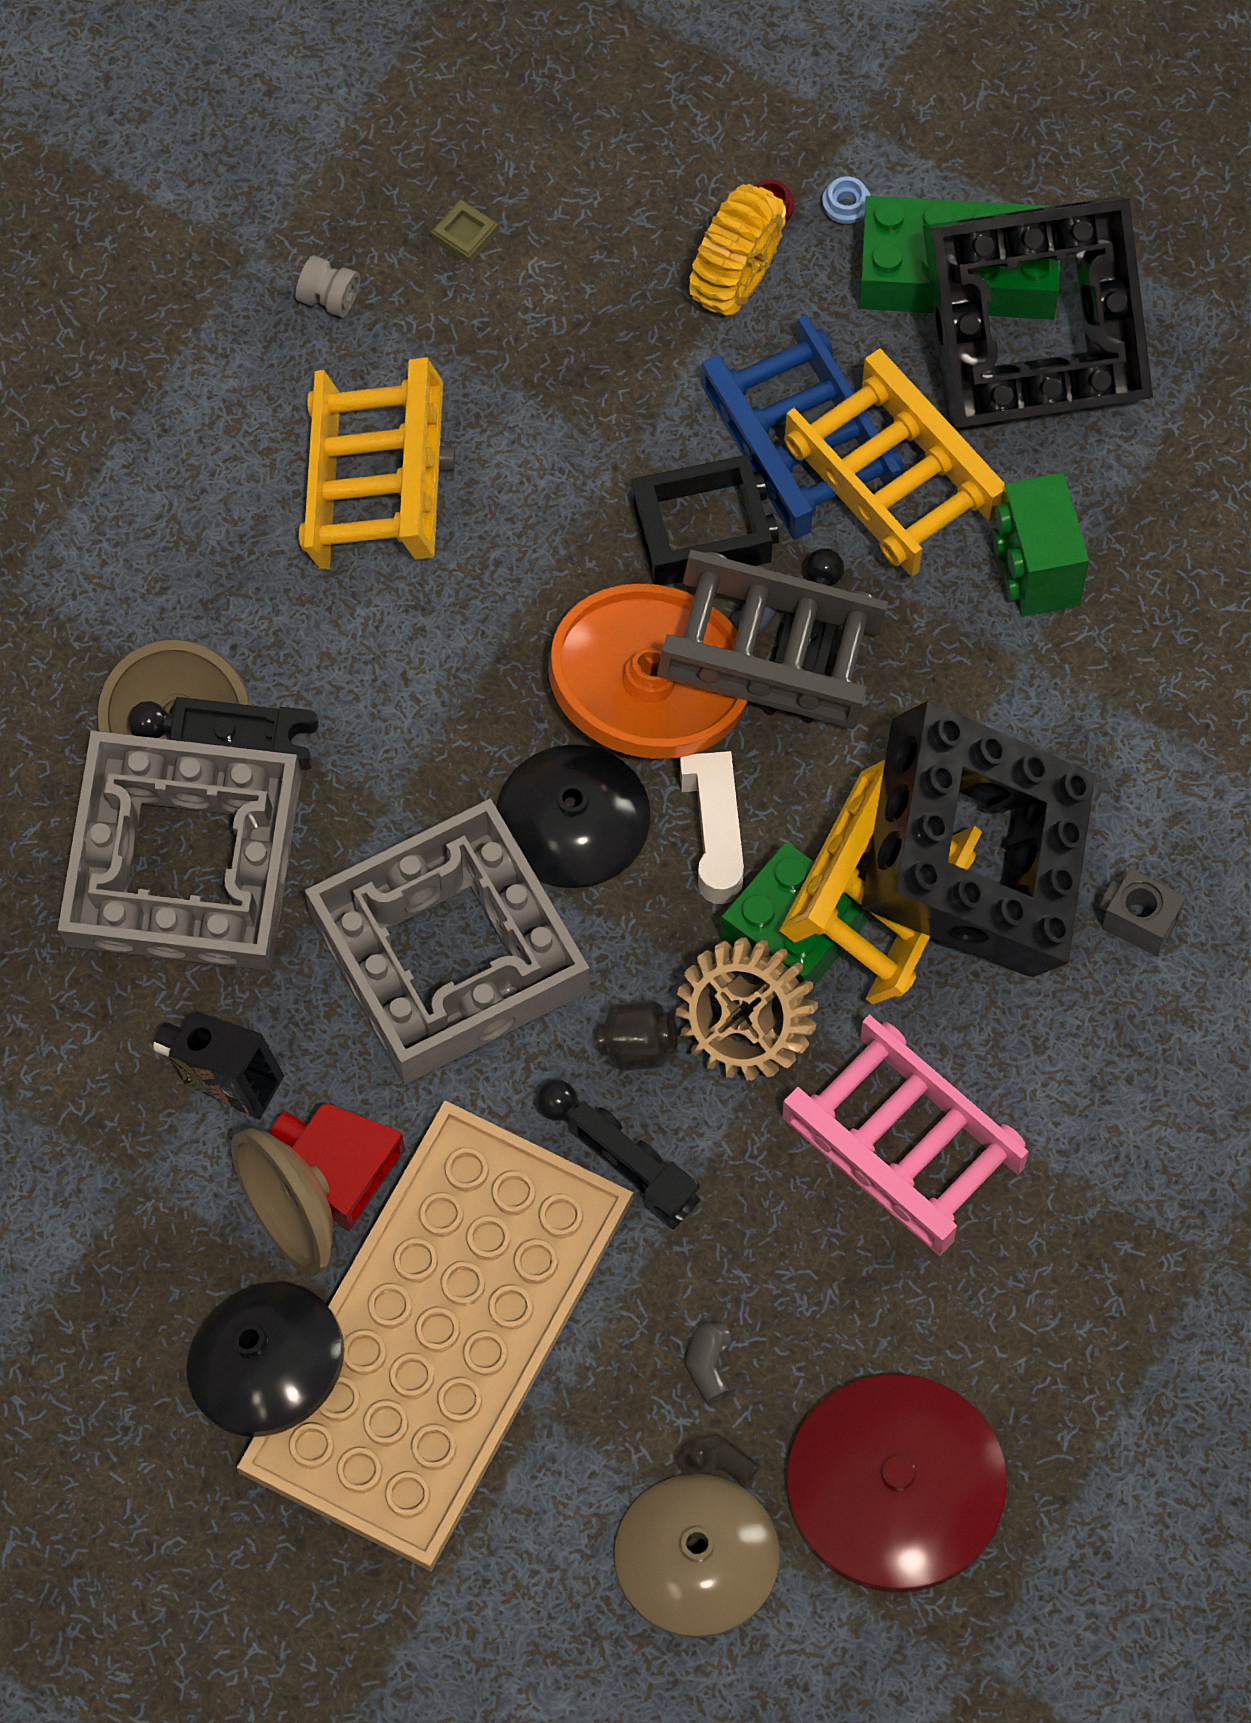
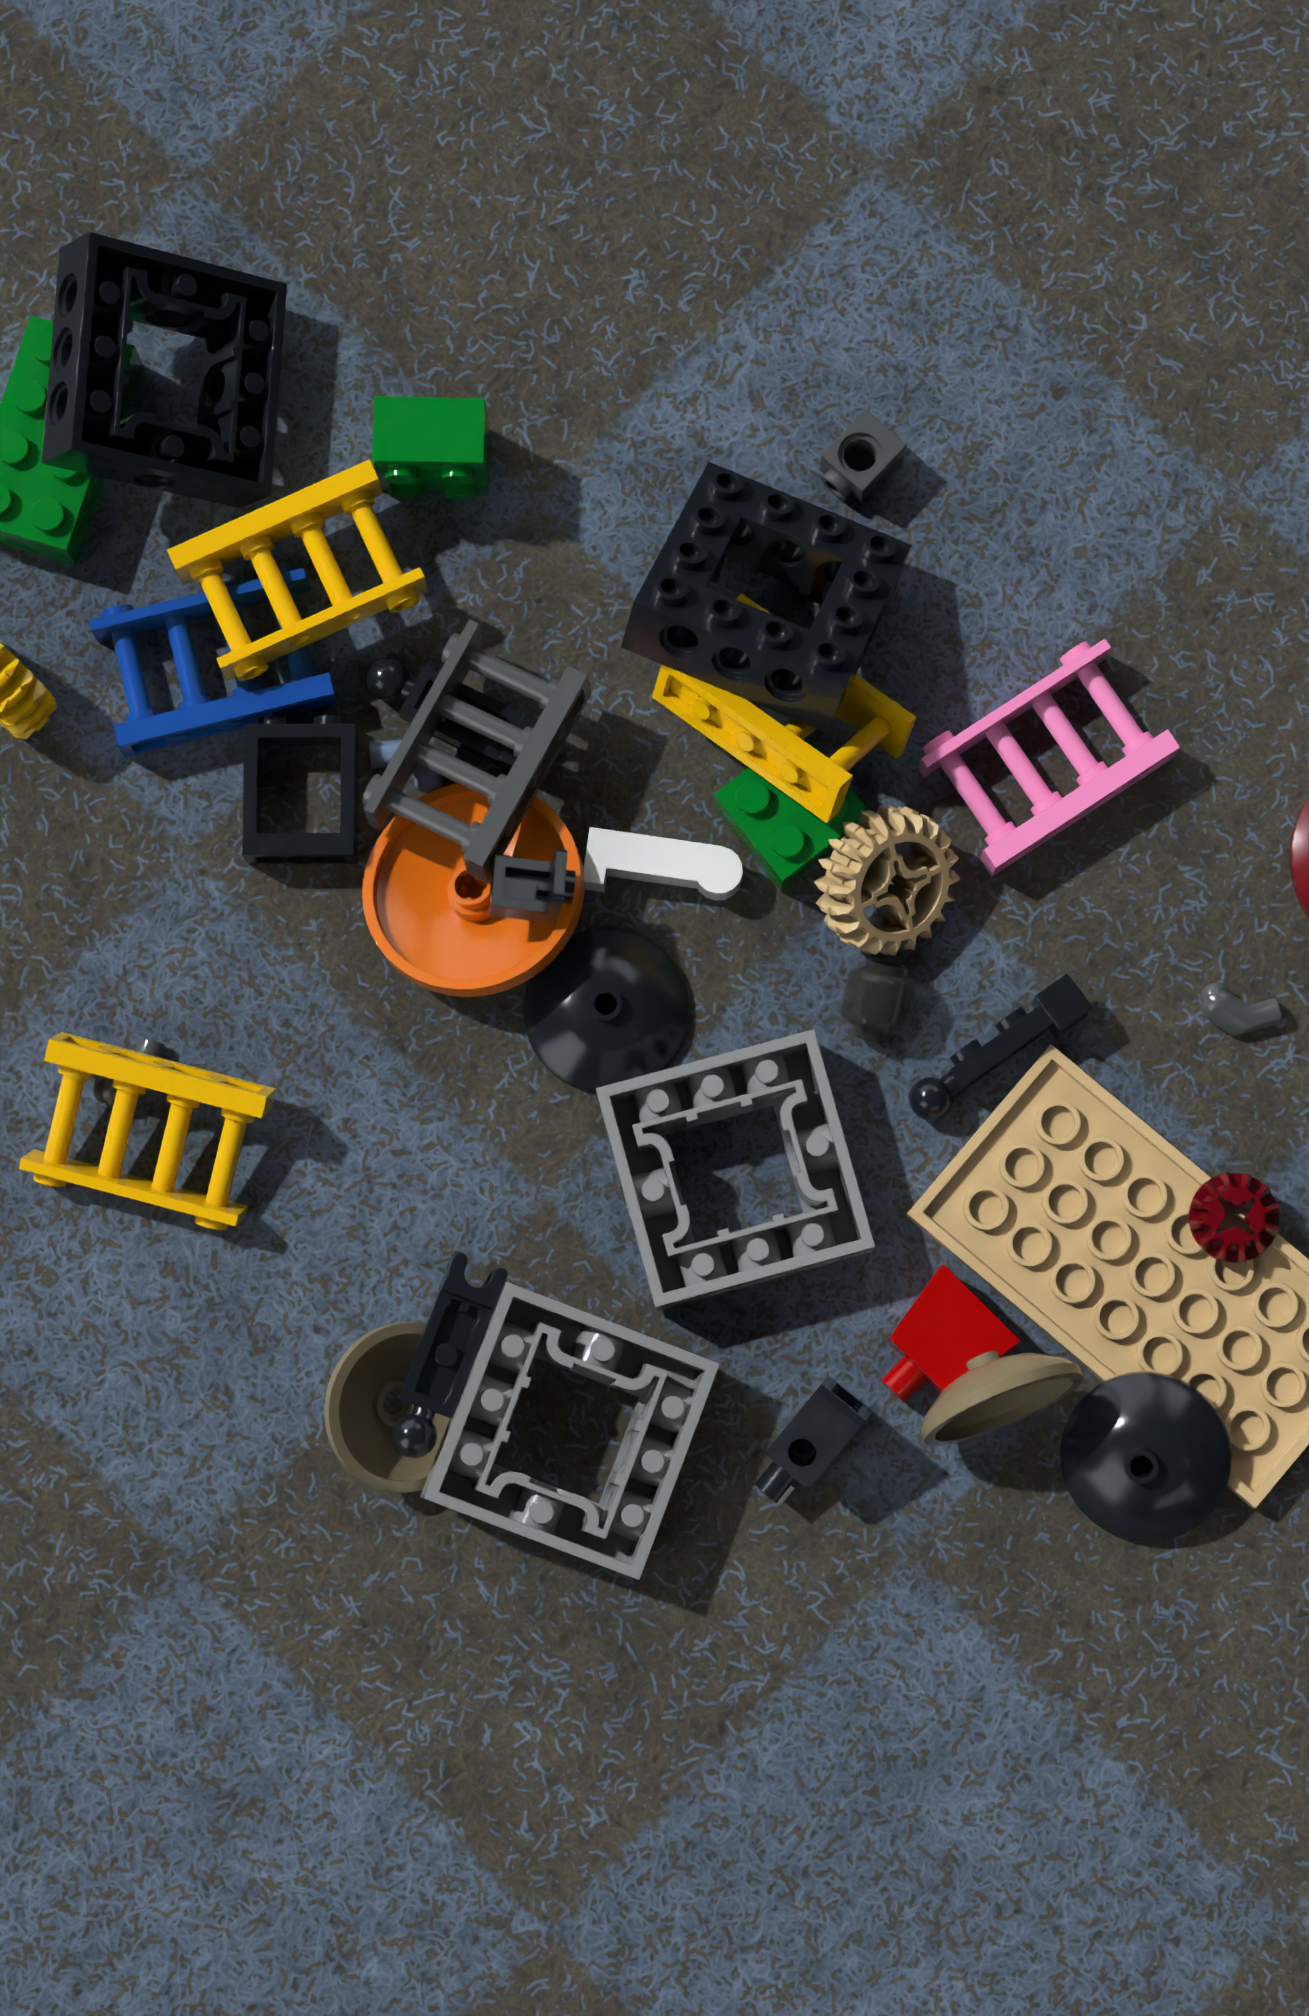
camera: 75 degrees left, 15 degrees up
(511, 1409) = (1207, 1214): none -> dark red gear
(655, 698) = (531, 887): none -> black bracket

